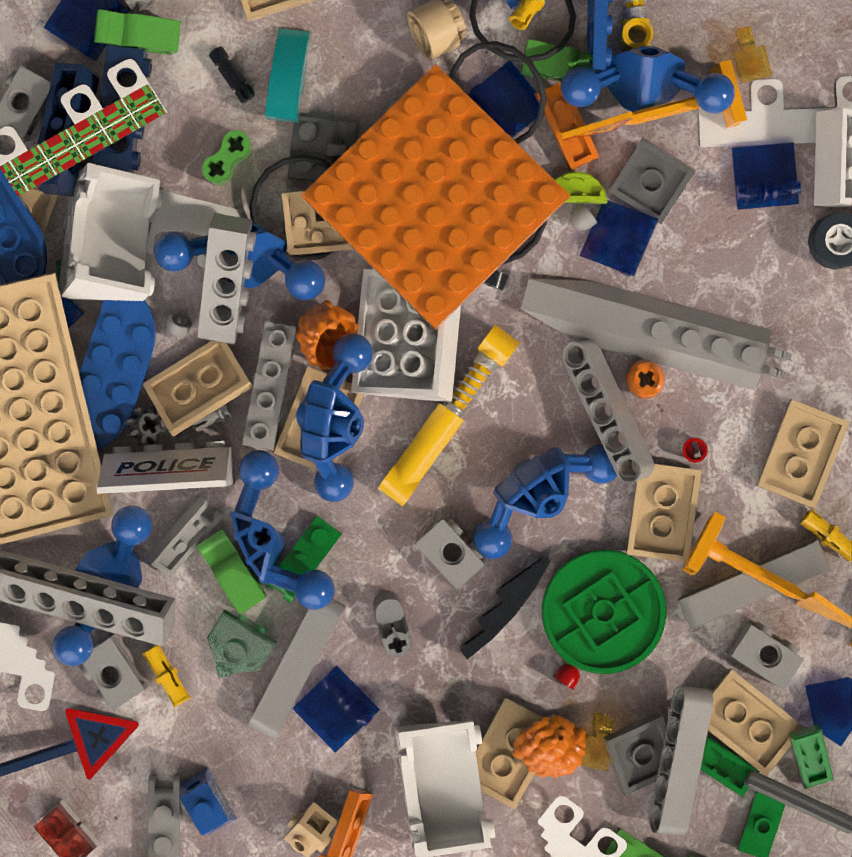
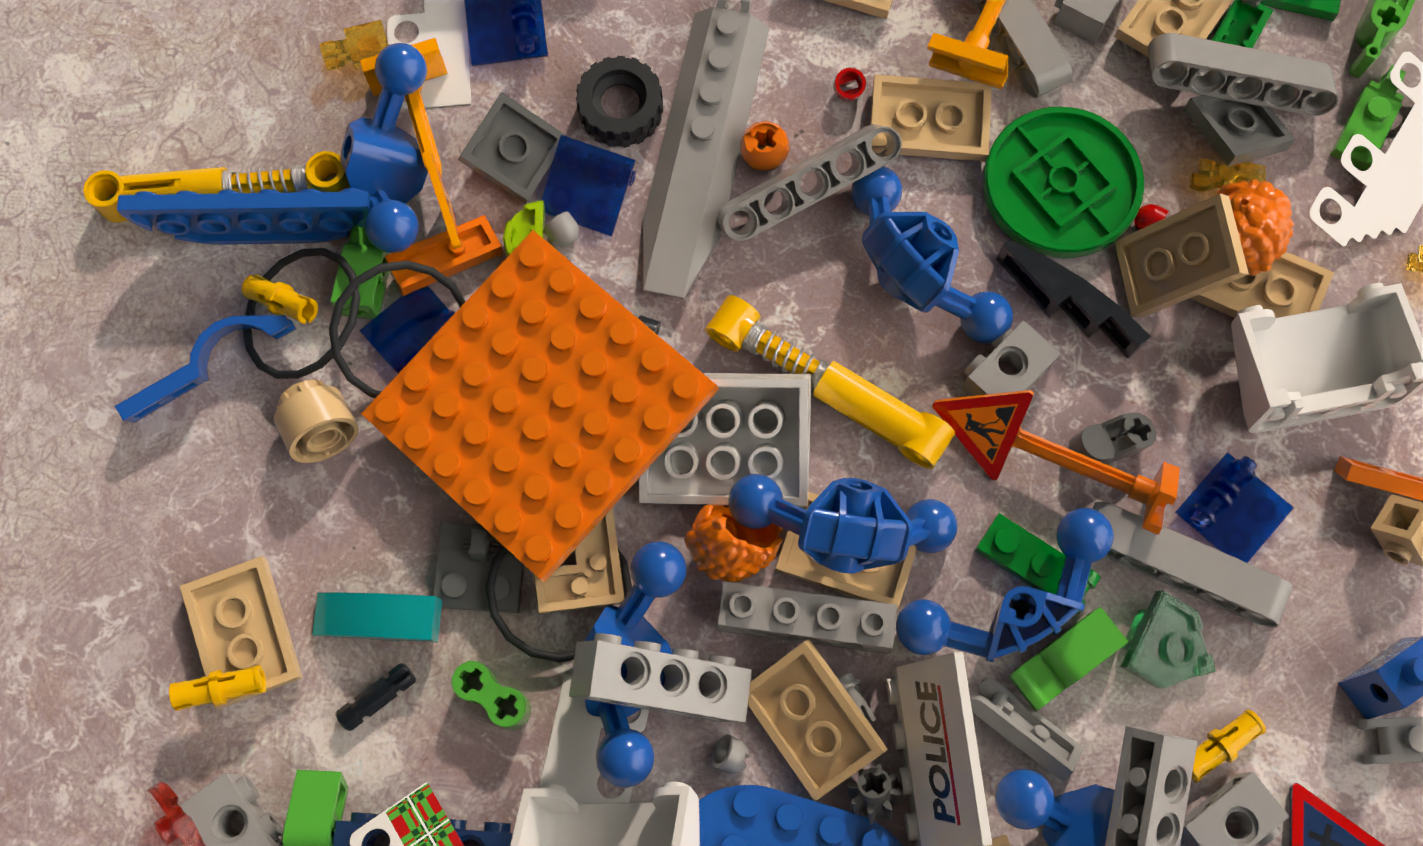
camera: 90 degrees left, 15 degrees down
(403, 535) = (992, 426): none -> orange piece
(526, 688) = (1181, 256): none -> tan plate
(714, 261) = (612, 73): none -> black tyre

